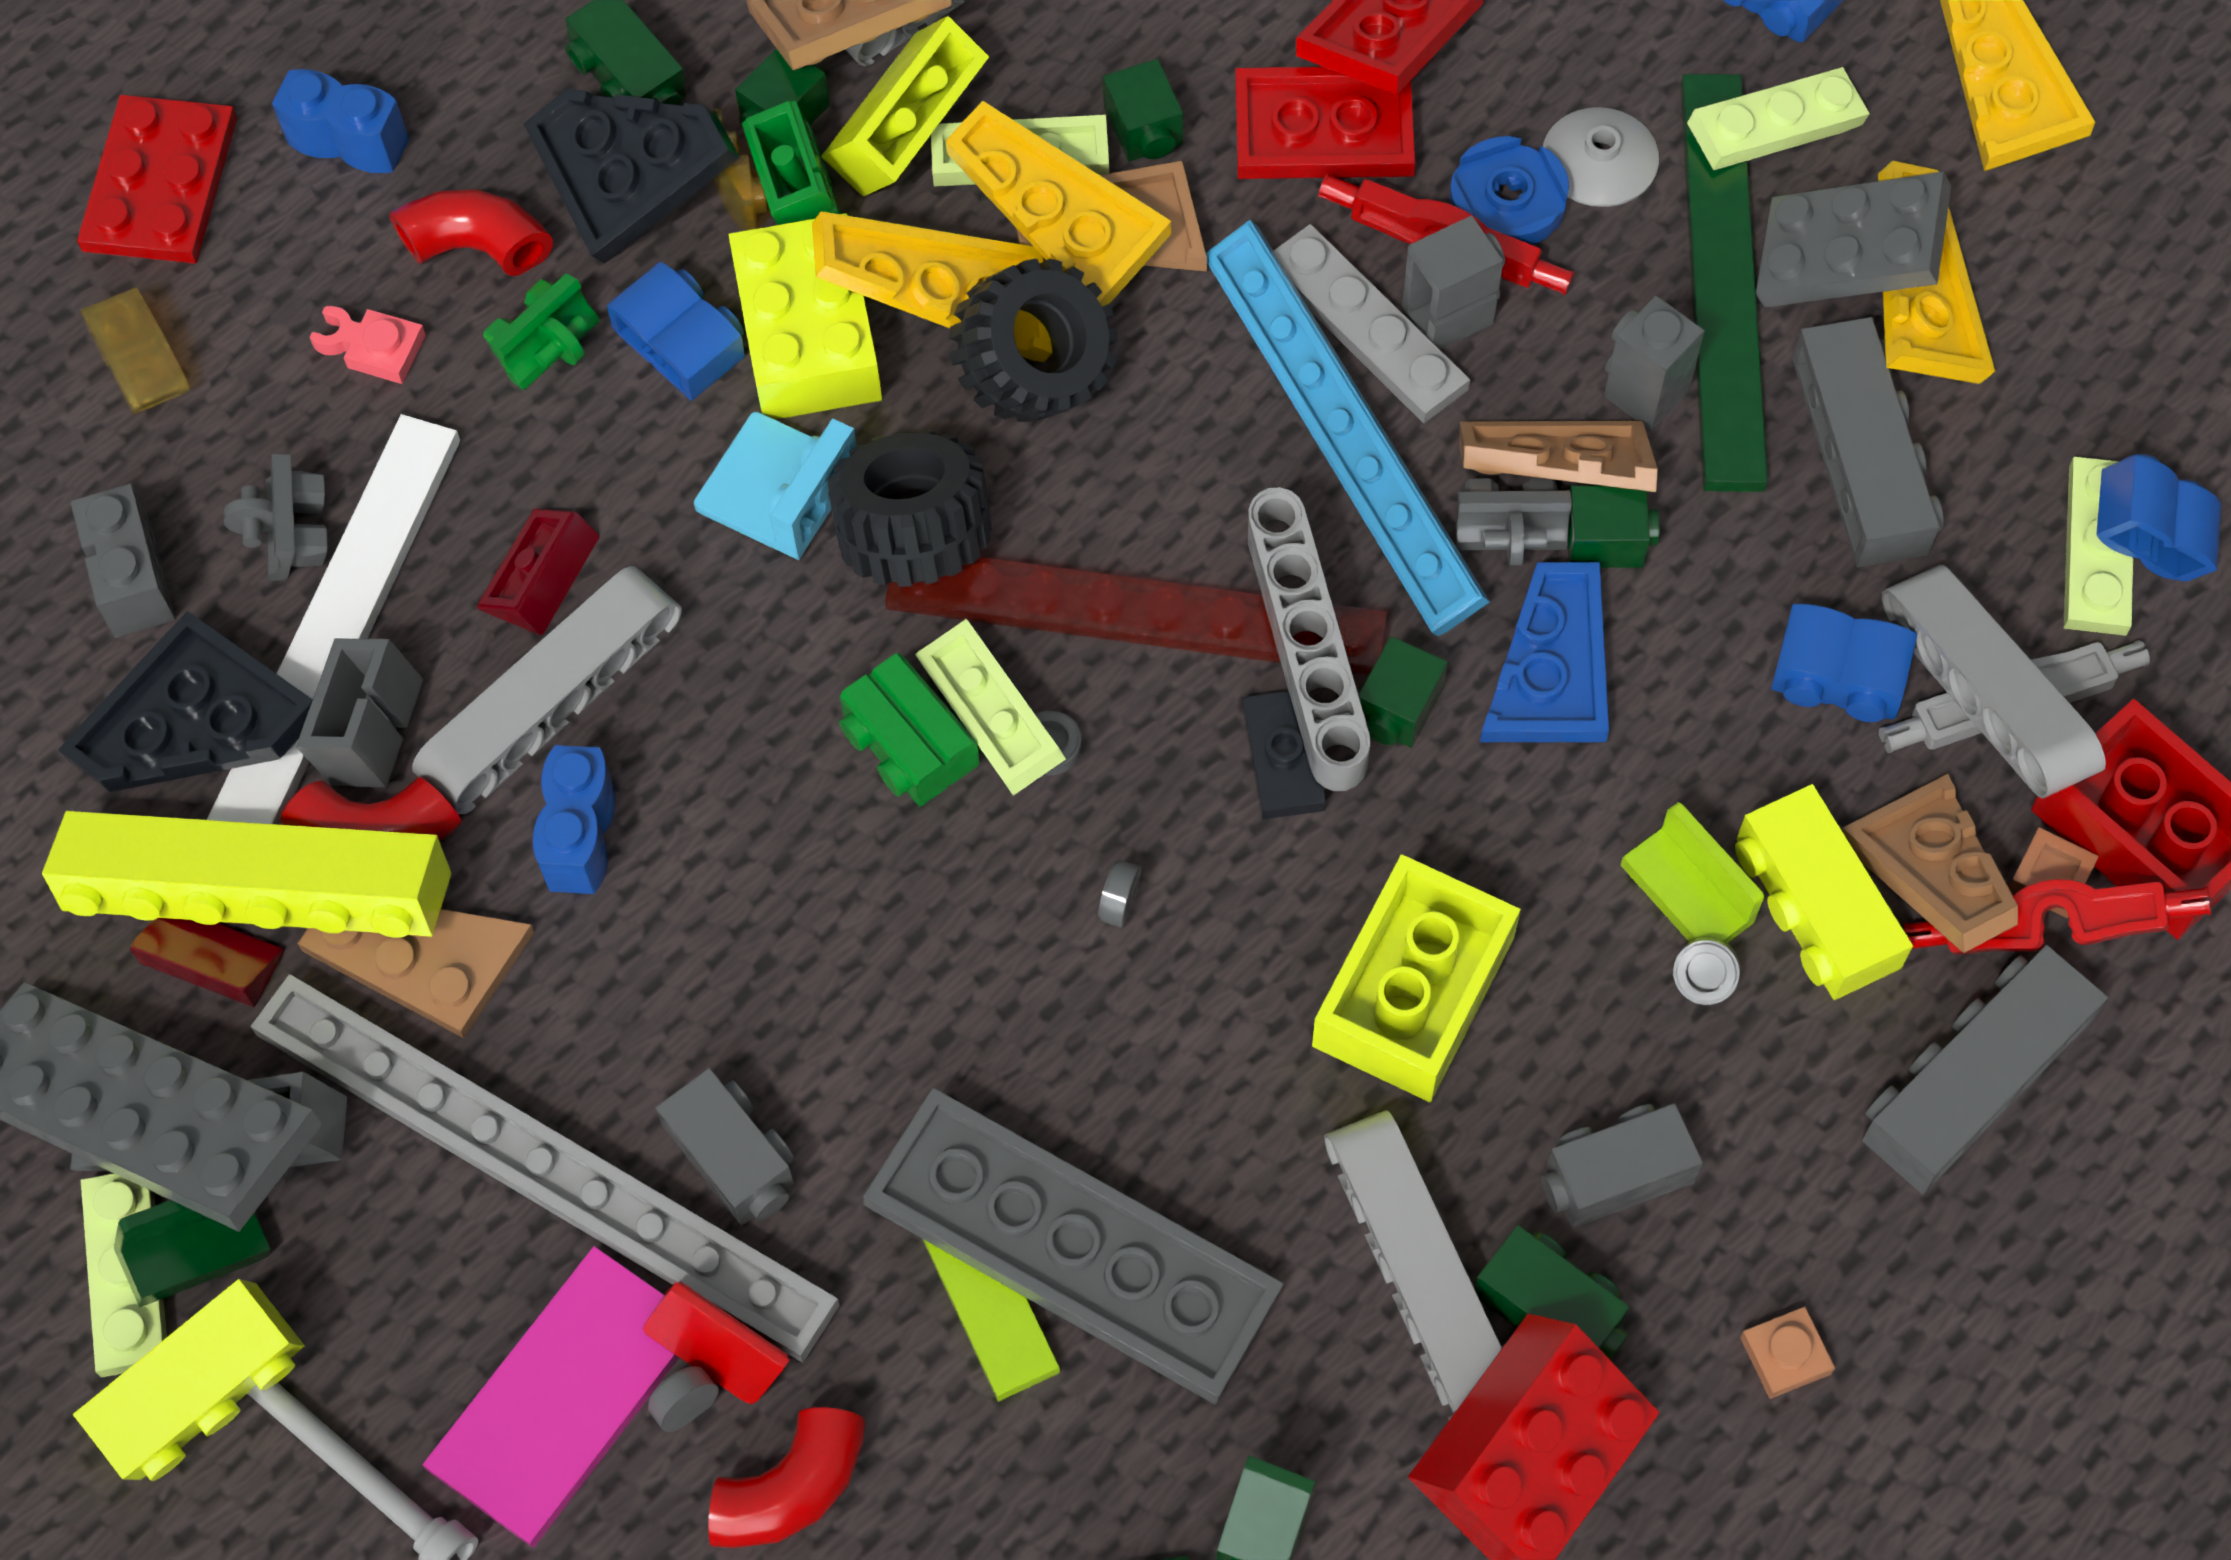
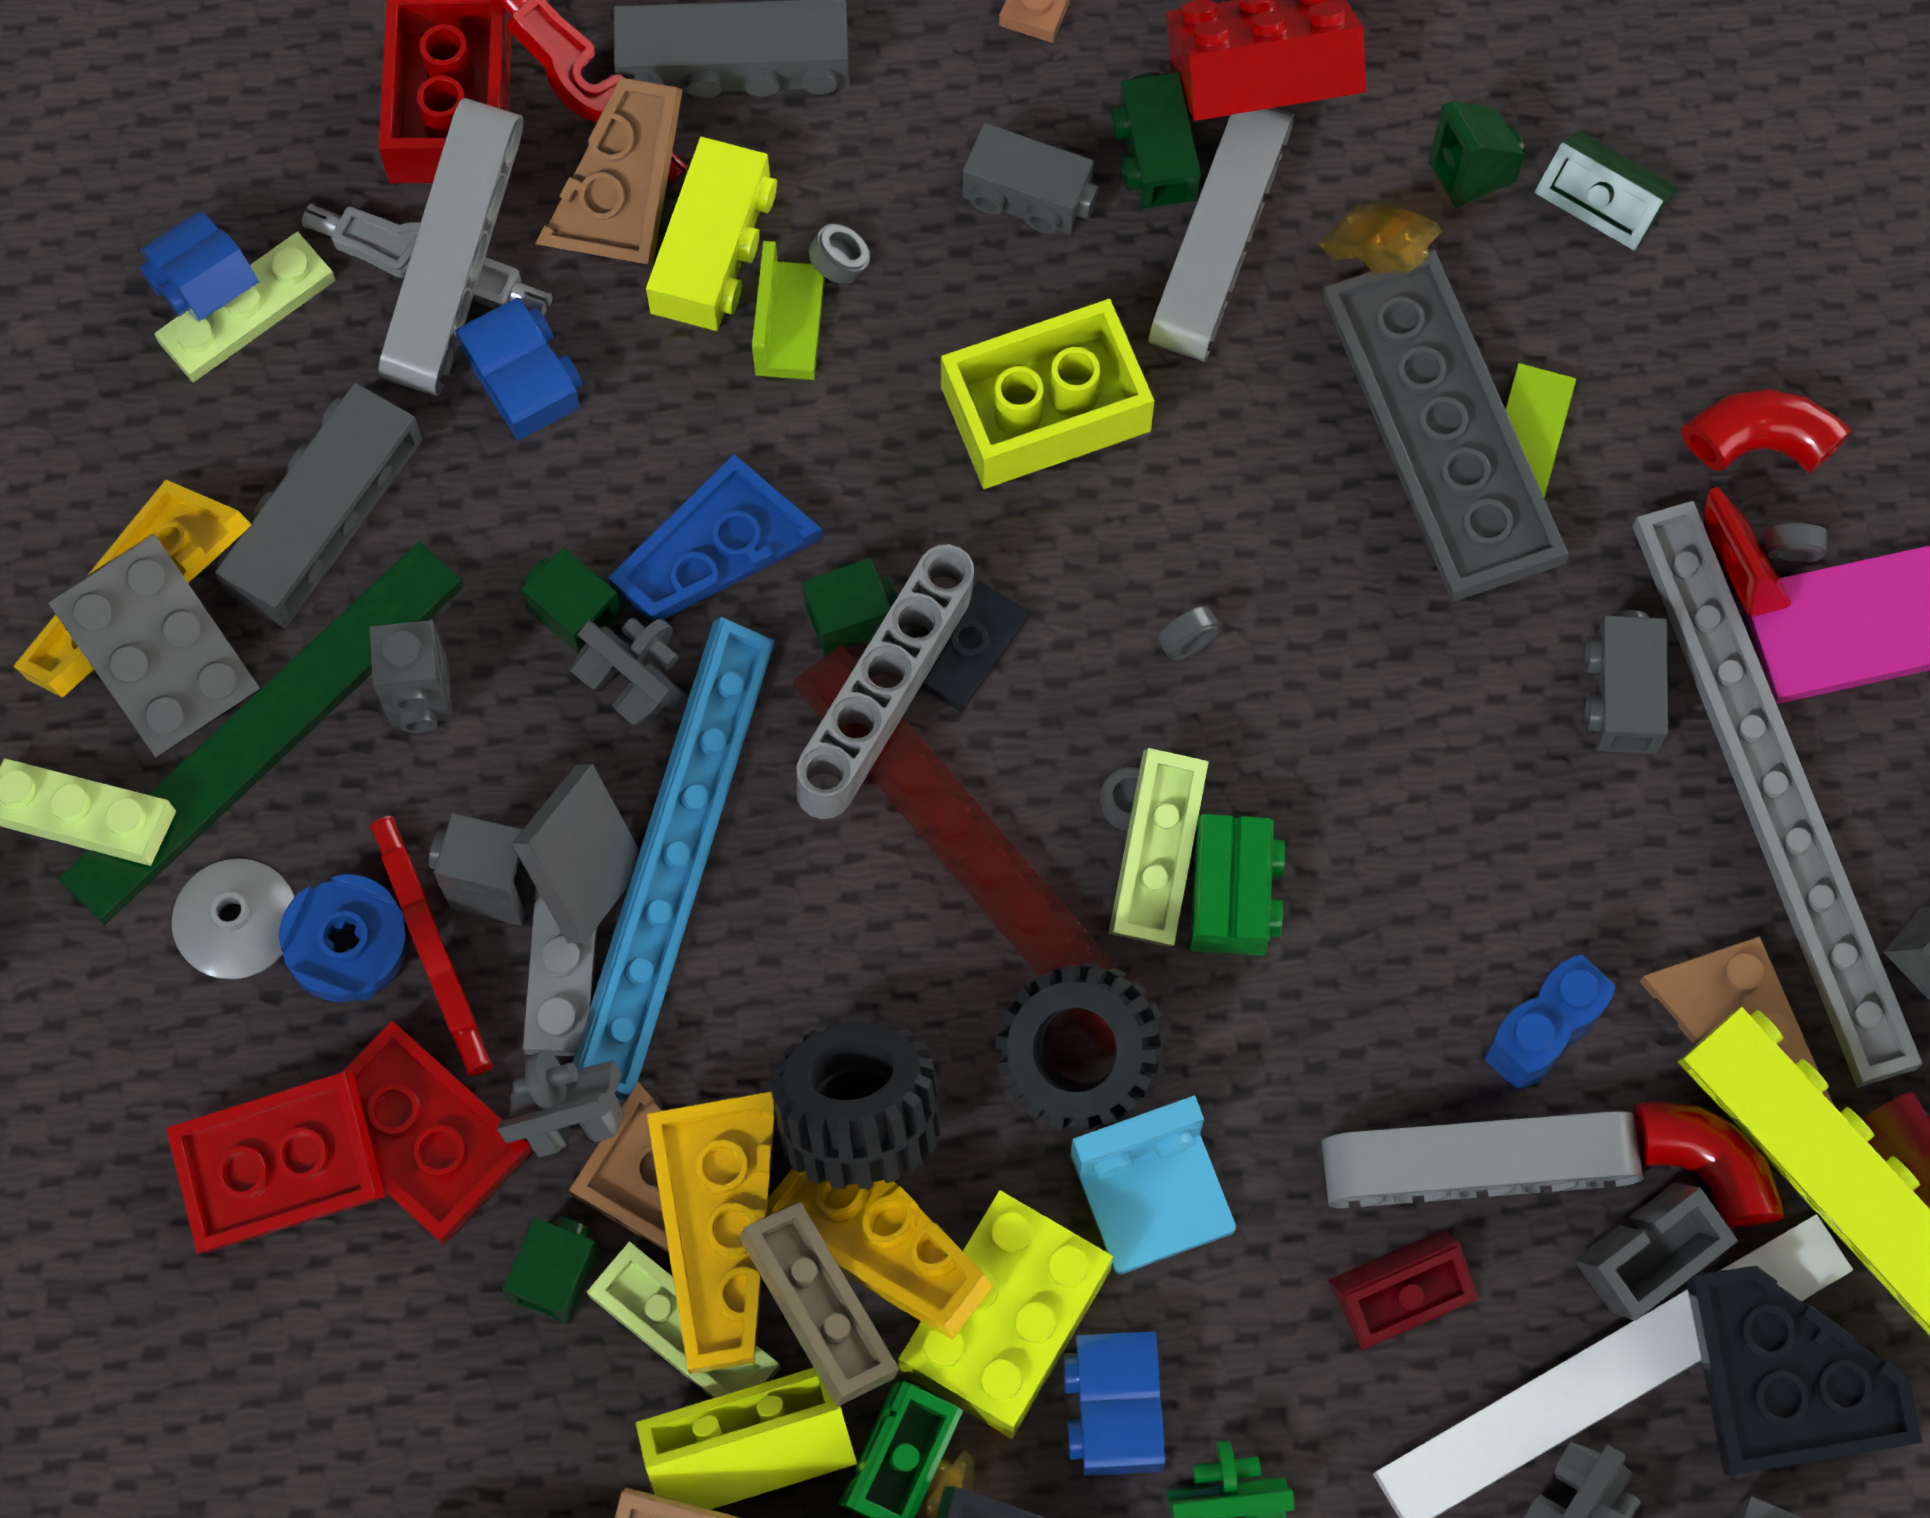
camera: 140 degrees left, 5 degrees up
(930, 190) = (818, 1304): none -> dark tan plate
(1236, 192) = (559, 1096): none -> dark grey hips
(1272, 1358) = (1382, 237): none -> clear yellow slope
(1398, 336) = (578, 853): none -> dark grey tile
(1562, 450) = (539, 678): medium nougat wing -> none
(2052, 859) = (546, 127): nougat plate -> none

